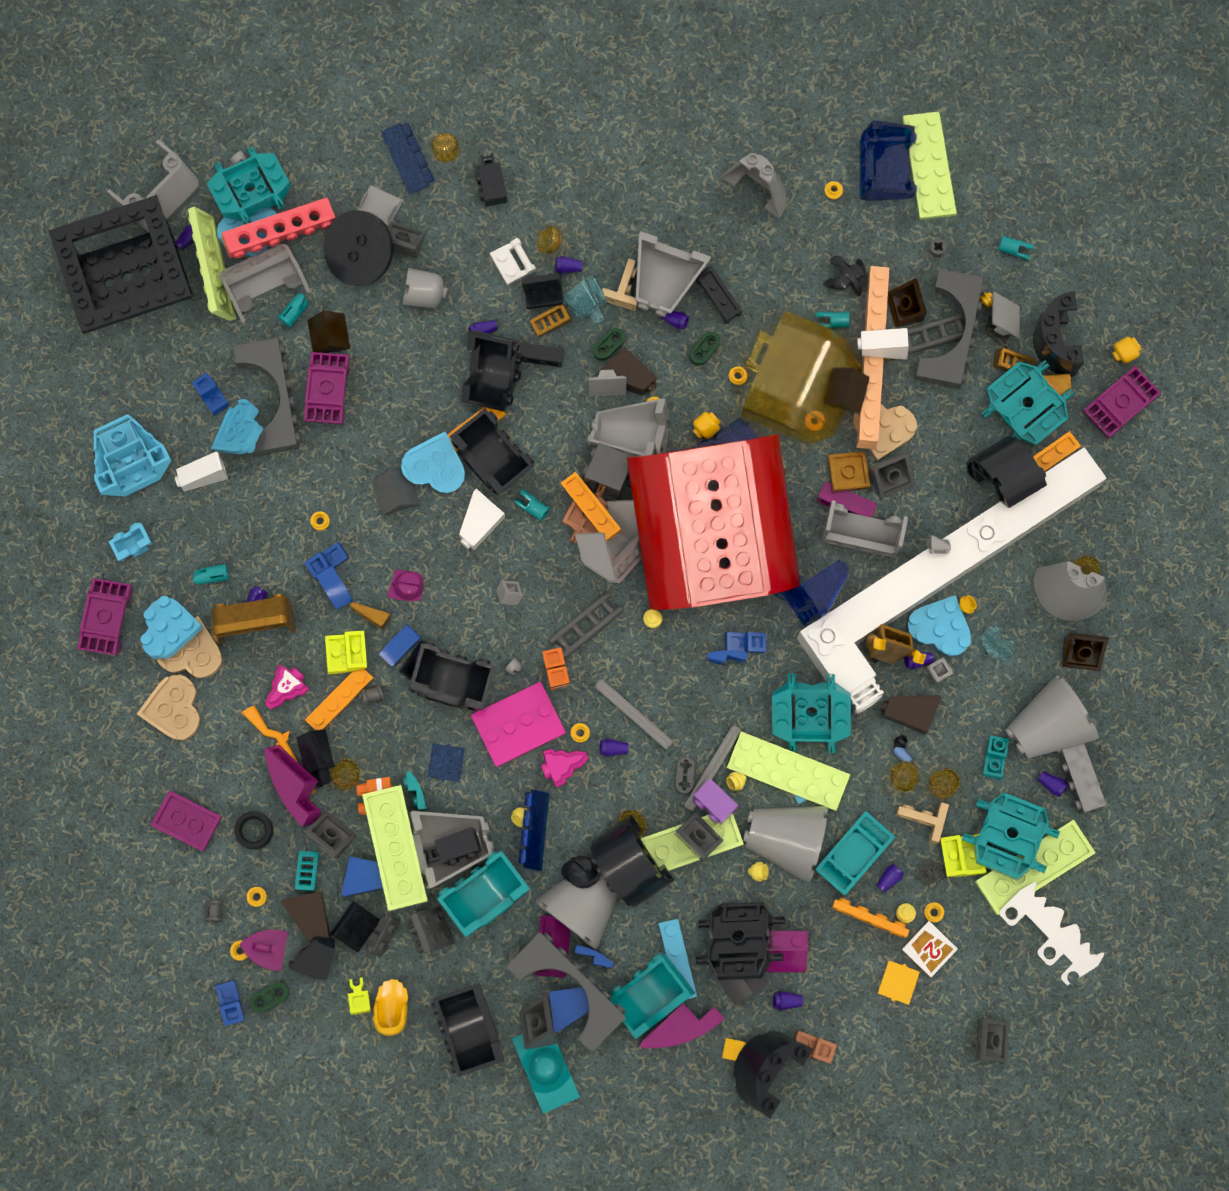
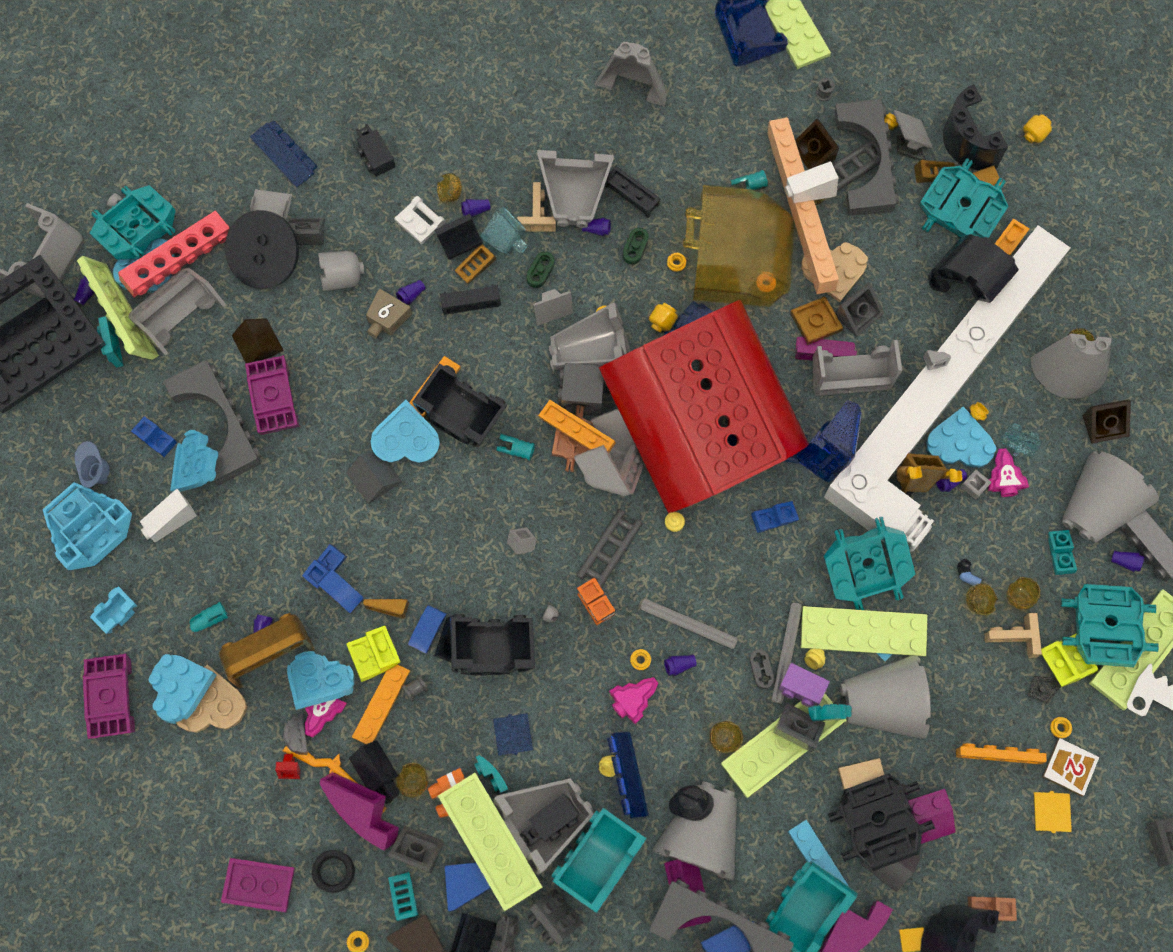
camera: 15 degrees left, 5 degrees down
(146, 404) = (90, 465): none -> sand blue piece
(172, 708) = (207, 769): tan plate -> none
(197, 292) = (112, 347): none -> teal plate
(241, 729) = (288, 768): none -> red tile
(256, 703) = (295, 736): none -> flat silver tile
(290, 661) = (317, 680): none -> medium azure plate
(293, 310) = (214, 329): teal hinge -> none
(316, 516) = (305, 522): yellow plate -> none
(406, 586) = (414, 567): magenta piece -> none
(445, 147) = (318, 132): clear yellow hair -> none
(451, 343) = (386, 314): none -> dark tan torso
(479, 521) = (468, 478): white slope -> none
(492, 370) = (433, 325): black cylinder -> none
(518, 724) = (574, 671): dark pink plate -> none
(599, 959) = (739, 889): blue slope -> none
(628, 863) = (737, 777): black cylinder -> none
(638, 376) = (583, 292): dark brown slope -> none
(719, 657) = (757, 538): blue slope -> none
(729, 832) = (830, 712): none -> teal piece
(740, 894) = (860, 773): none -> tan tile
(759, 871) = (871, 743): light yellow plate -> none
(786, 1000) = (947, 869): dark purple cone -> none
(833, 195) = (704, 68): yellow plate -> none
(846, 389) = (790, 238): dark brown slope -> none
(848, 275) = (750, 137): black animal -> none
(854, 853) = (960, 693): teal slope -> none
(890, 877) = (1005, 706): dark purple cone -> none
(905, 913) = (1033, 737): light yellow plate -> none
(911, 711) = (964, 533): dark brown slope -> none
(970, 672) = (1006, 476): none -> dark pink rock
(1011, 246) = (894, 67): teal hinge -> none
(1121, 402) = (1051, 178): magenta plate -> none

